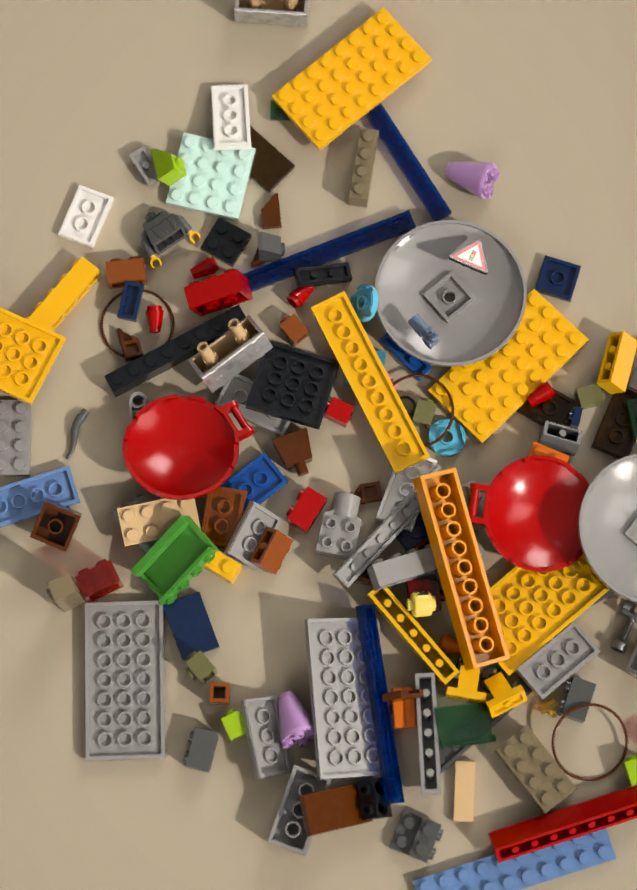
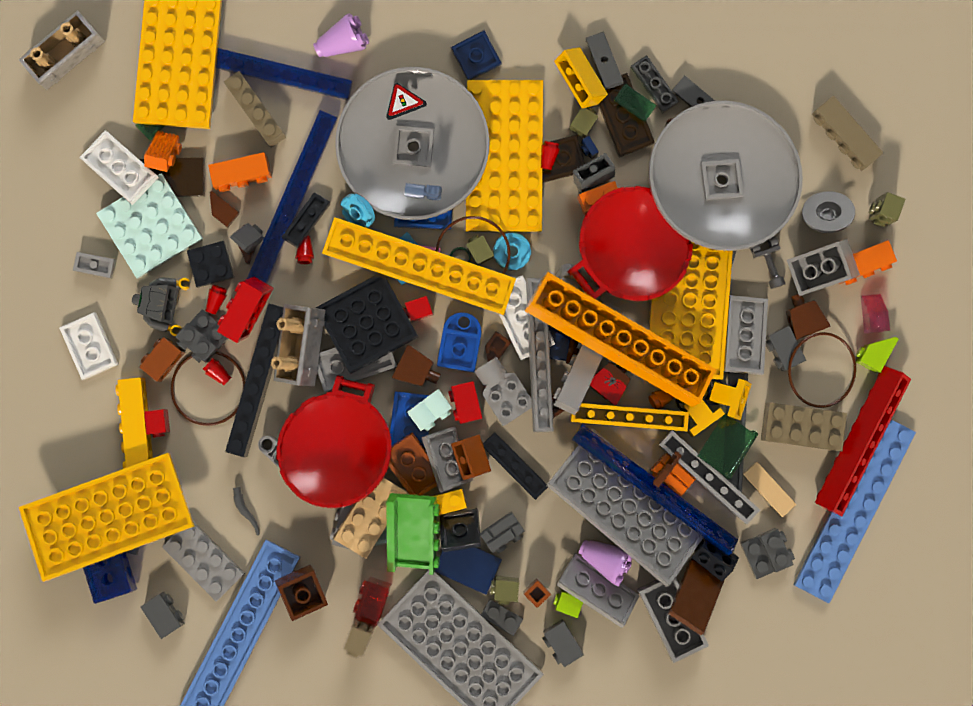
camera: 45 degrees left, 10 degrees up
(78, 312) = (157, 422): none -> red brick
(130, 301) = (187, 377): dark blue tile -> none
(130, 345) = (219, 409): reddish brown tile -> none
(168, 167) = (111, 251): lime slope -> none
(168, 284) = (201, 337): none -> dark grey plate
(177, 687) = (501, 617): none -> dark grey plate
(210, 593) = (460, 530): none -> black plate
(239, 627) = (502, 532): none -> dark grey brick
(271, 134) = (162, 151): none -> orange brick
(276, 488) = (429, 410): none -> light aqua brick
(293, 329) = (325, 281): dark orange brick -> none
(296, 590) = (515, 466): none -> black tile
(310, 199) = (240, 172): none -> orange brick
(343, 465) = (460, 345): none -> blue plate
(421, 604) = (616, 391): light yellow head -> none
(548, 707) = (770, 373): clear yellow tile -> none
(614, 692) = (805, 317): none -> reddish brown torso

